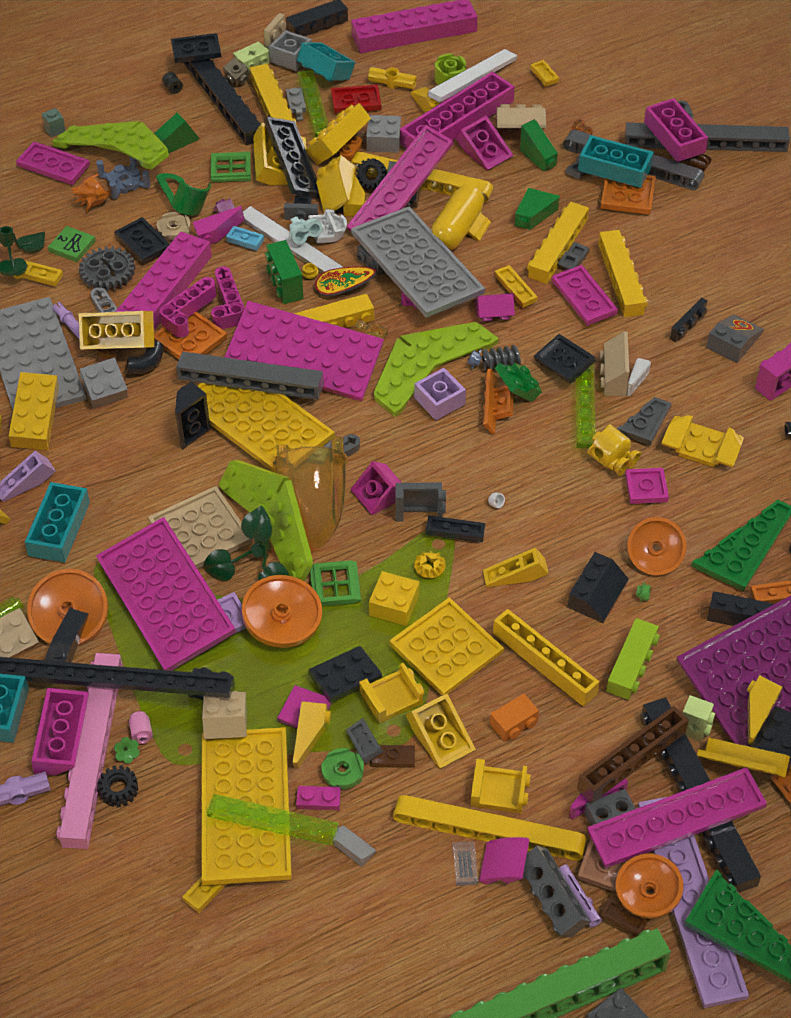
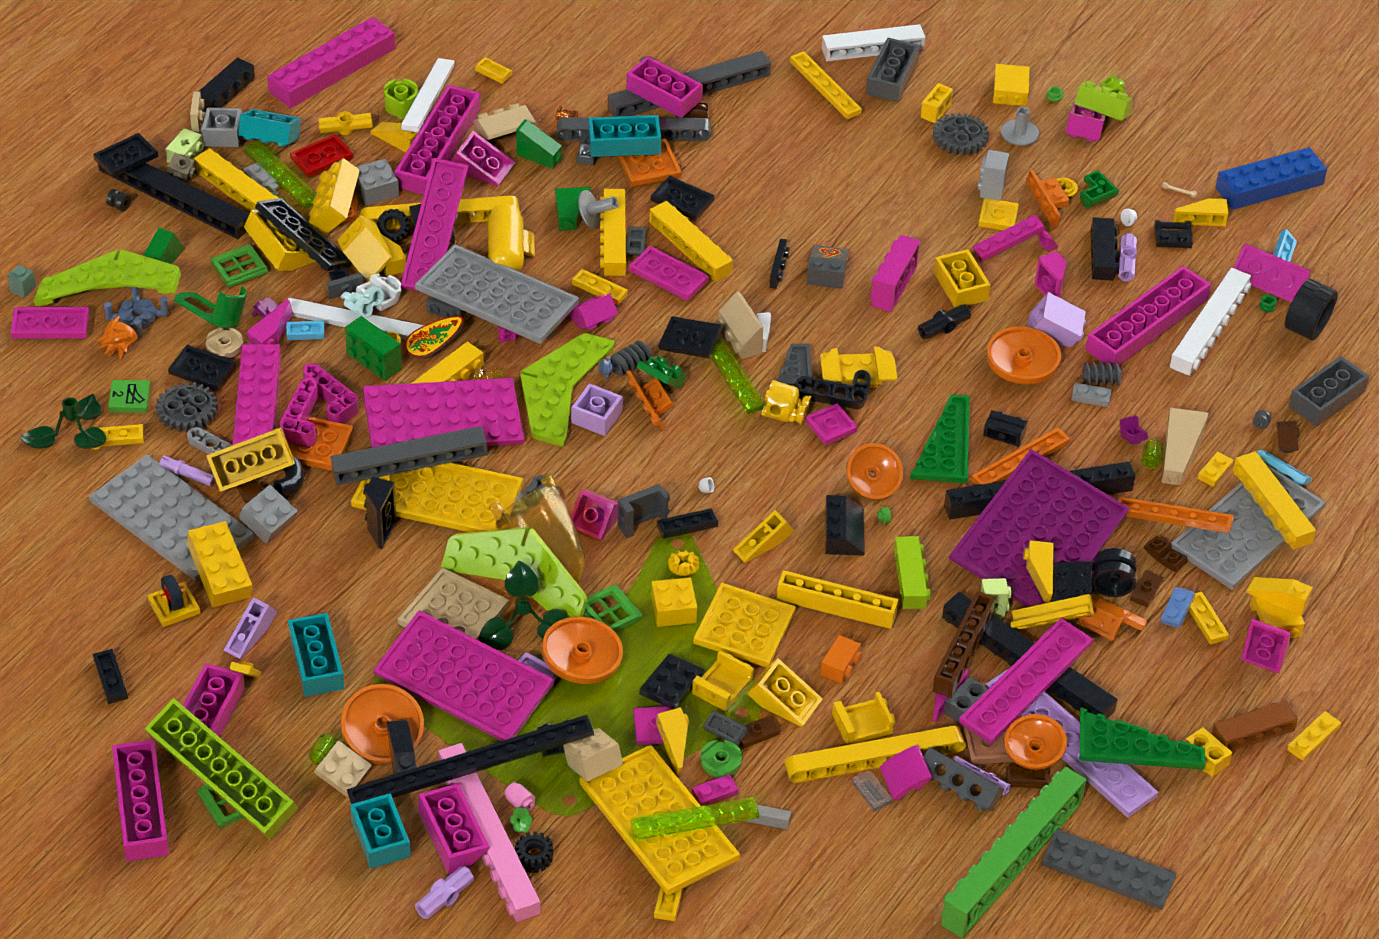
camera: 30 degrees left, 5 degrees down
(547, 213) = (591, 209): none -> light grey piece
(639, 232) = (686, 198): none -> black plate
(666, 452) = (832, 388): none -> black beam

